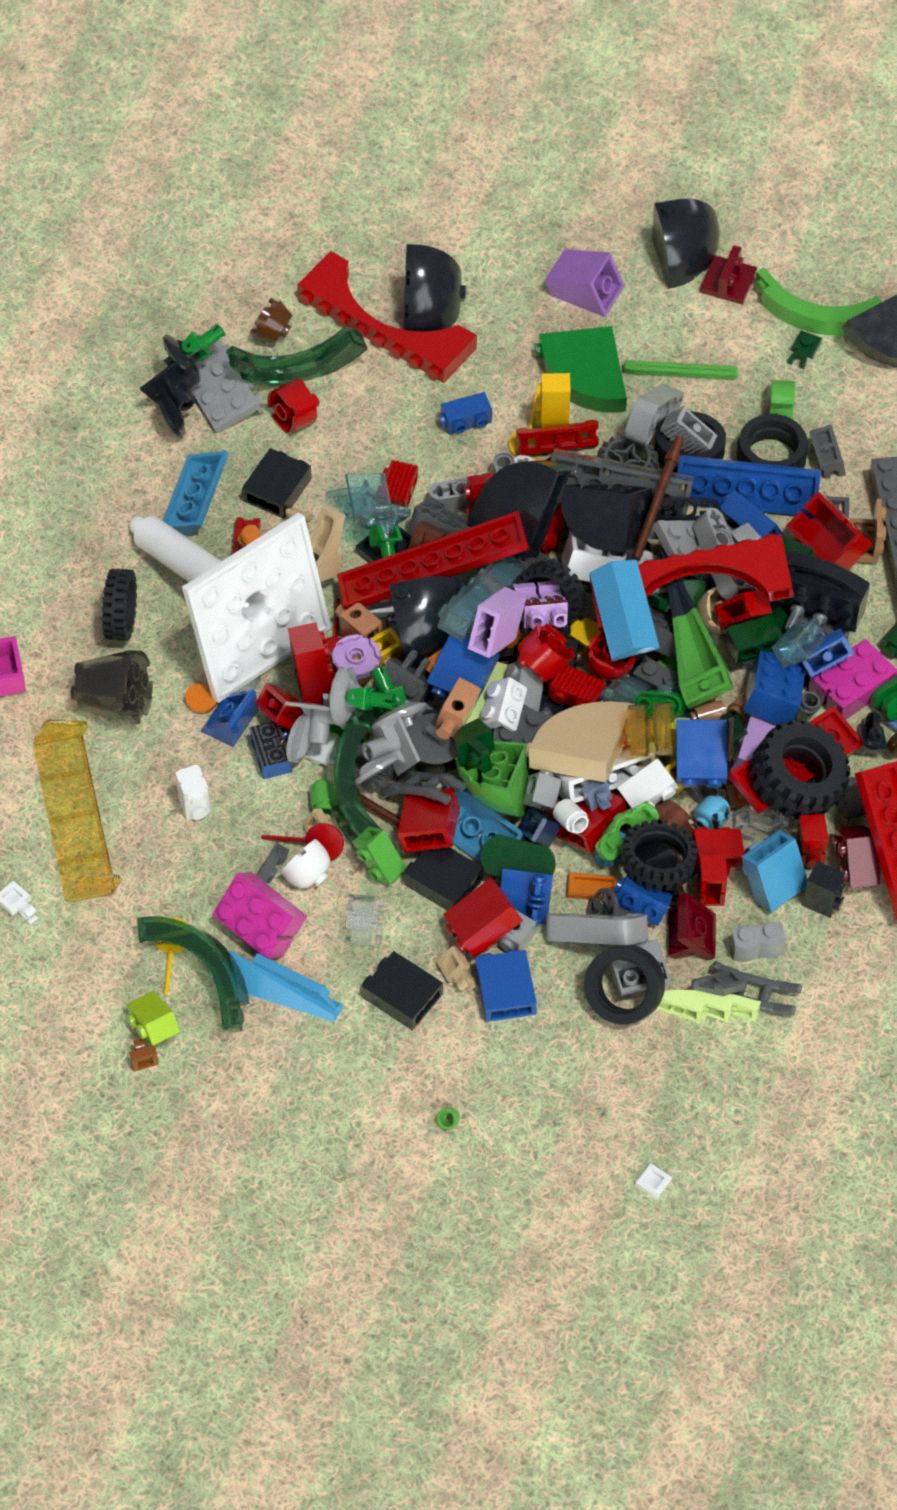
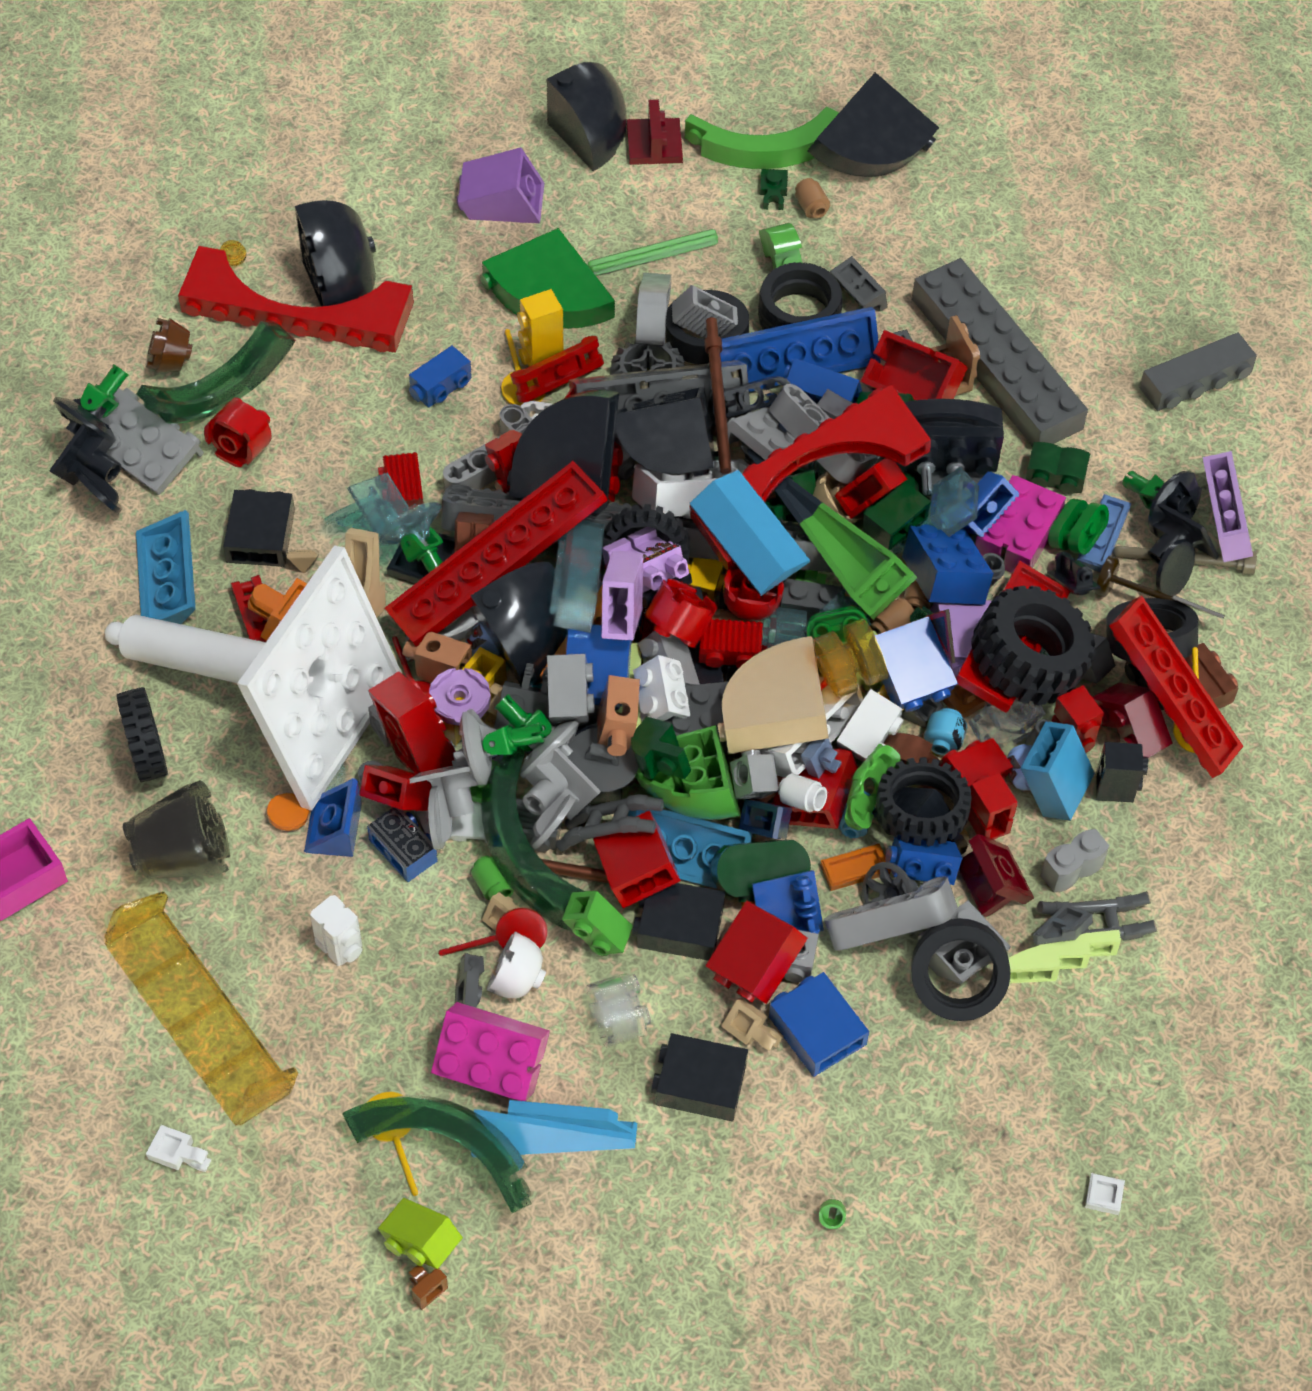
camera: 25 degrees left, 0 degrees up
(357, 264) = (234, 251): none -> clear yellow plate
(430, 677) = (569, 688): none -> light grey brick
(829, 367) = (812, 198): none -> medium nougat brick

